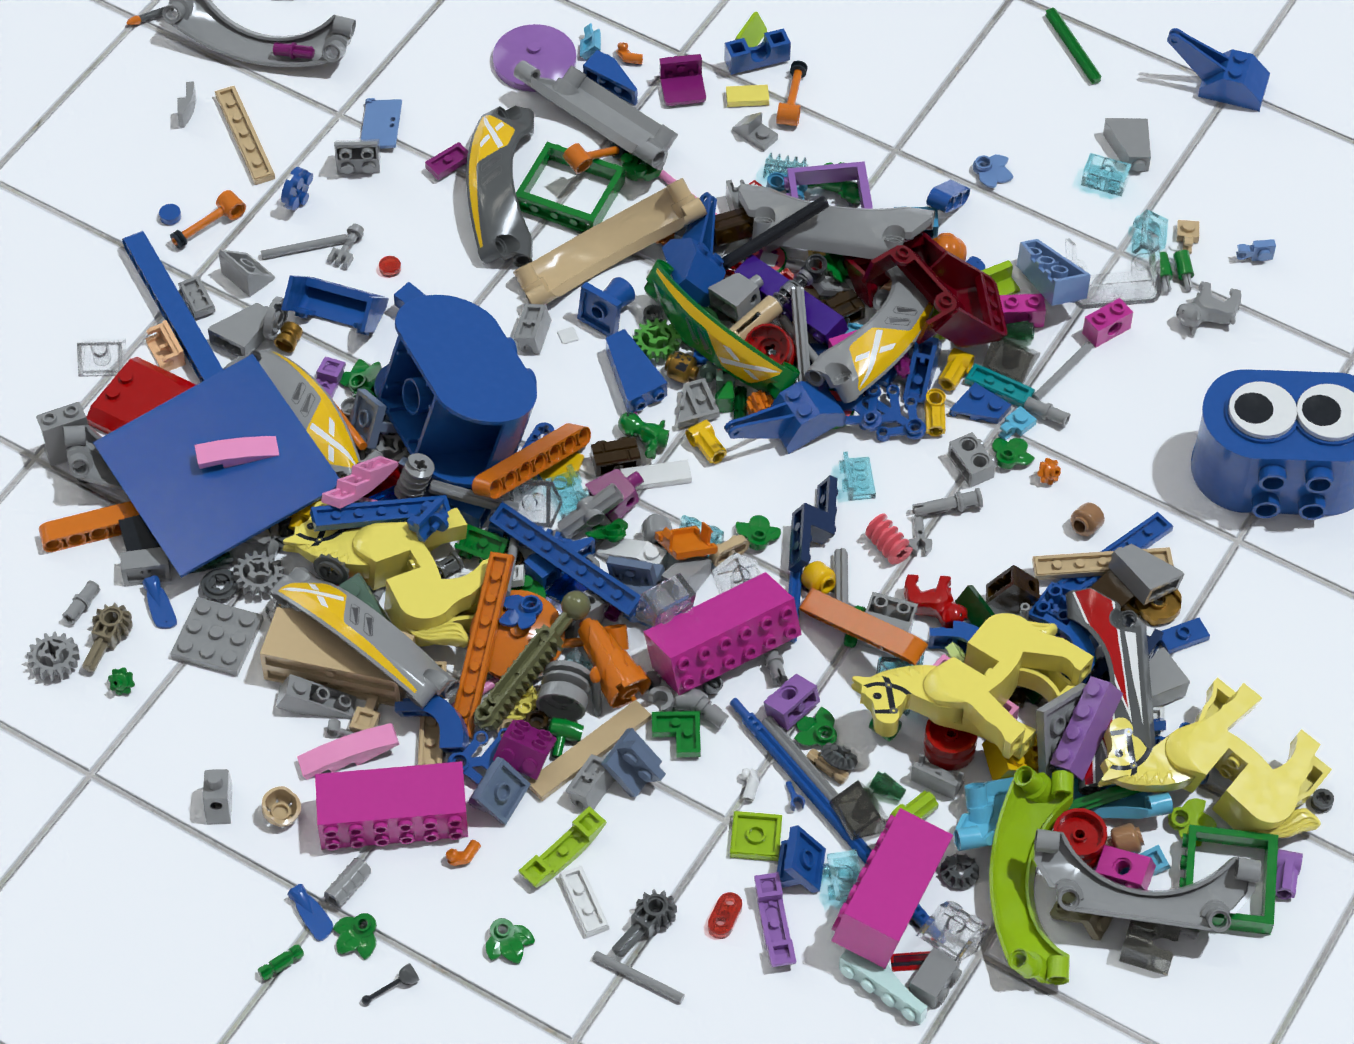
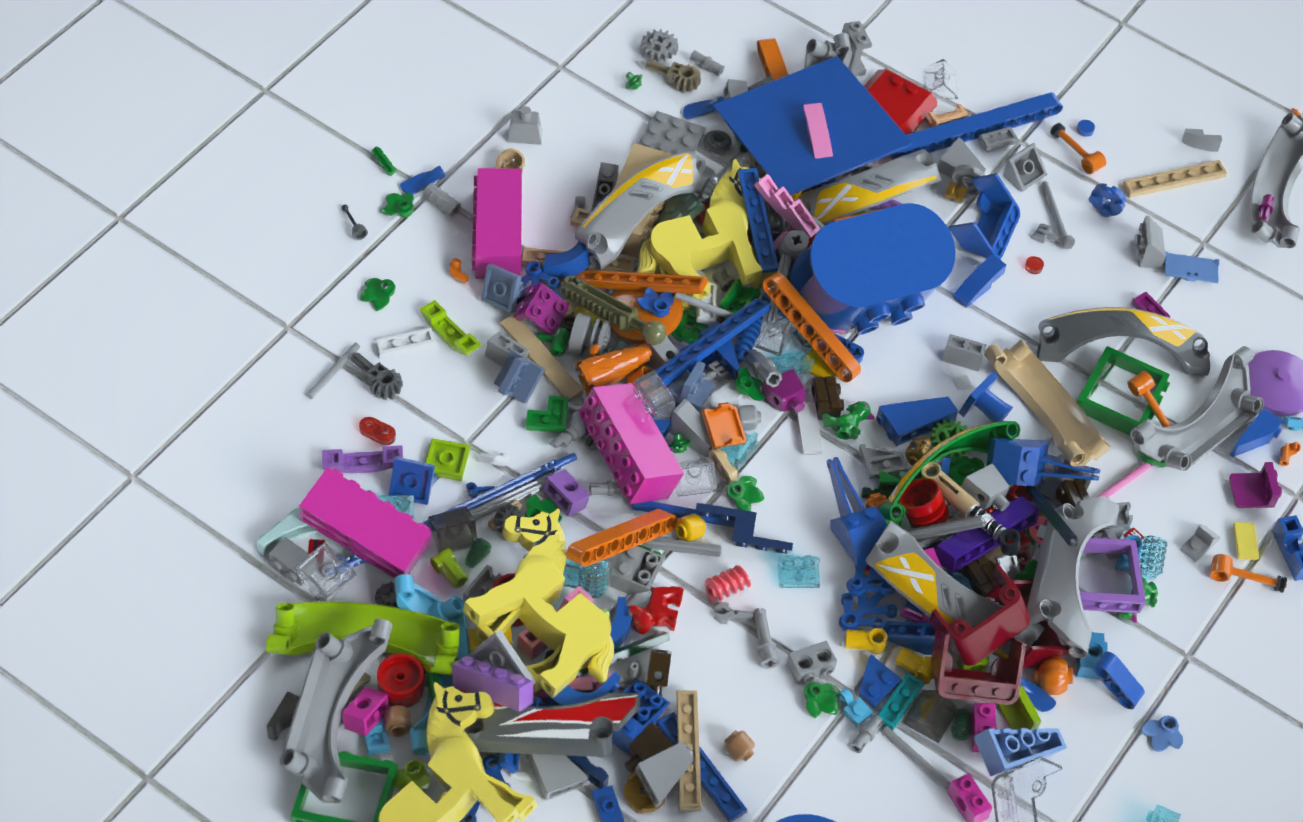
camera: 90 degrees right, 0 degrees up
(258, 573) = (722, 159): light grey gear -> none
(348, 749) = (556, 206): bright pink slope -> none
(432, 518) = (743, 244): blue hips -> none
(703, 437) = (848, 459): yellow piece -> none
(703, 593) = (679, 445): none -> green plant
(1049, 471) = (796, 723): orange plant -> none

